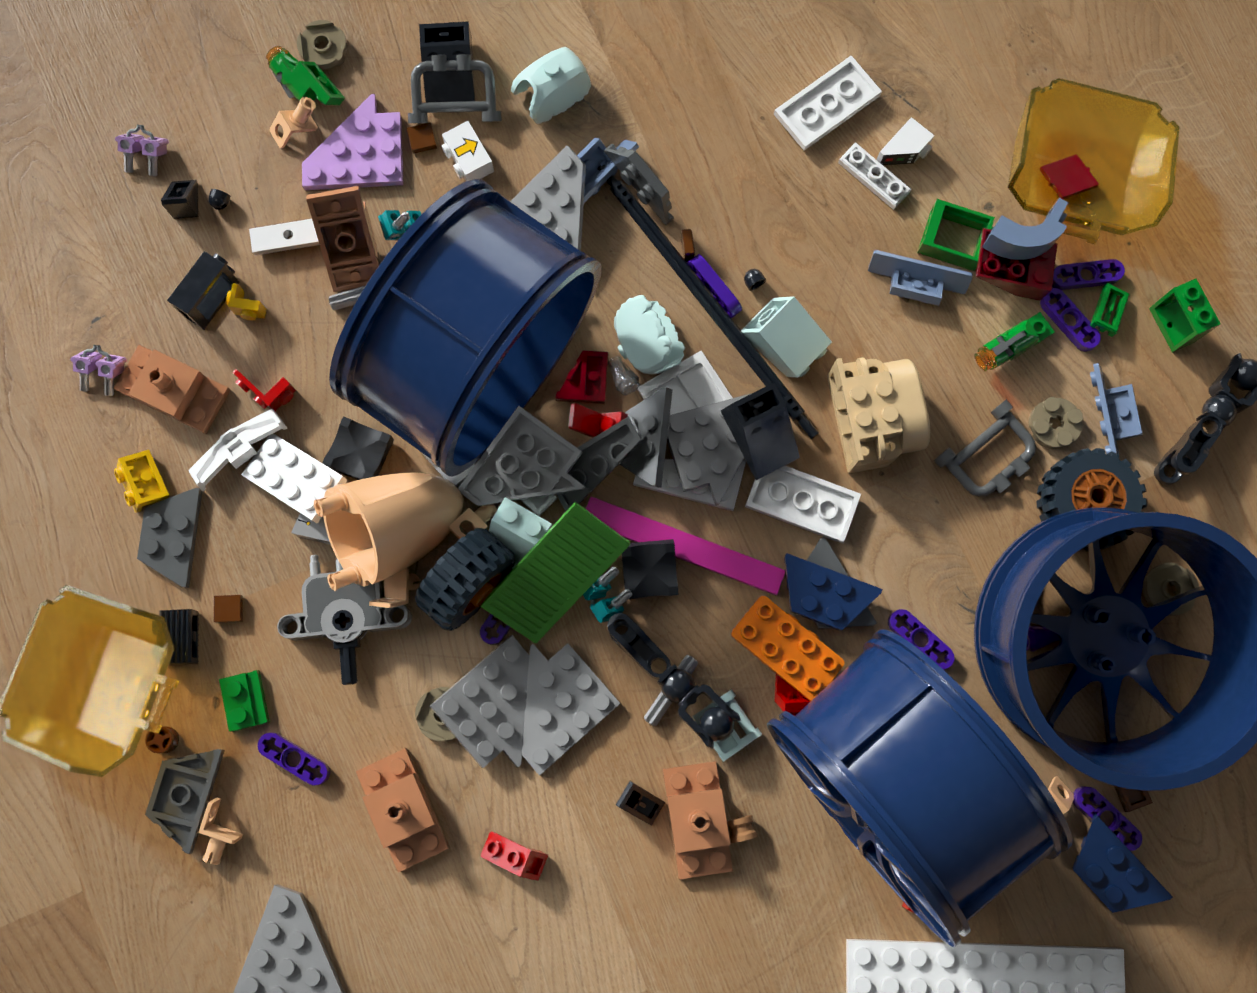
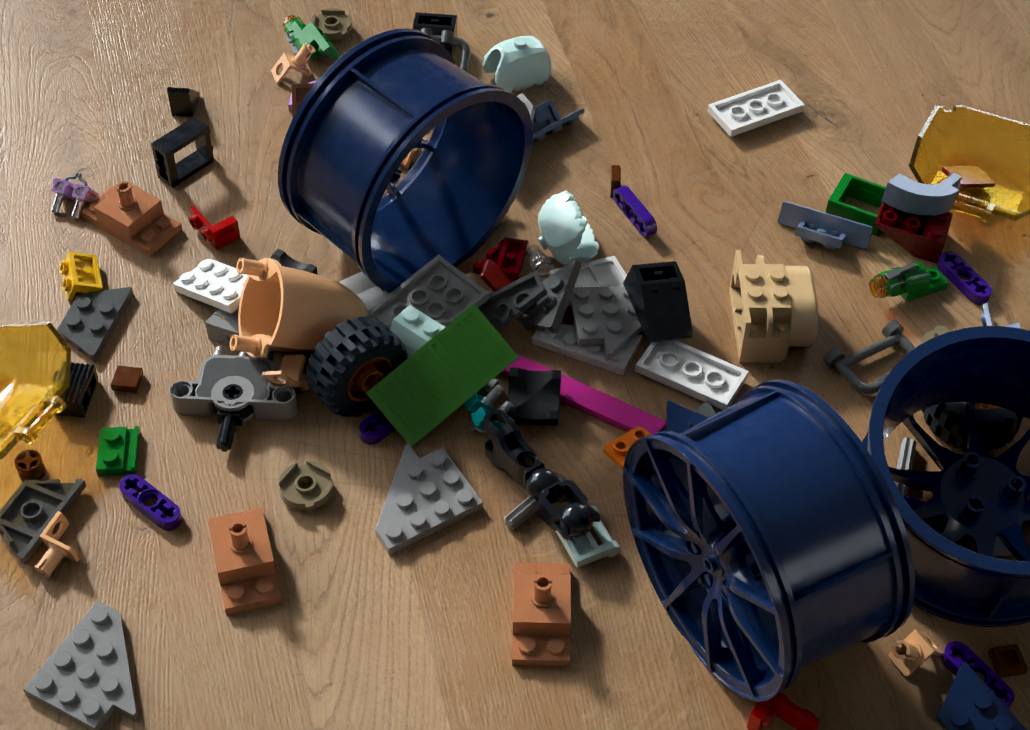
camera: 10 degrees right, 30 degrees down
(150, 146) = (155, 61): piece -> none
(218, 199) = (215, 103): black hinge -> none
(235, 446) = (174, 263): white plate -> none
(245, 308) = (215, 172): yellow bracket -> none
(274, 237) = (259, 133): white tile -> none
(489, 705) = (352, 483): light grey wing -> none
(514, 857) = (353, 609): red bracket -> none
(640, 803) = (483, 583): black slope -> none
(641, 177) = (584, 126): dark grey wing -> none
(707, 300) = (622, 216): black axle -> none
(741, 829) = (585, 623): medium nougat wheel -> none
(754, 279) = (672, 212): black hinge -> none
(787, 336) = (695, 248): light aqua slope -> none
(885, 185) = (792, 160): white tile -> none
(907, 145) = (821, 141): white slope -> none
(1095, 267) = (1003, 248): dark purple beam -> none
(1103, 324) = (996, 280): green tile -> none

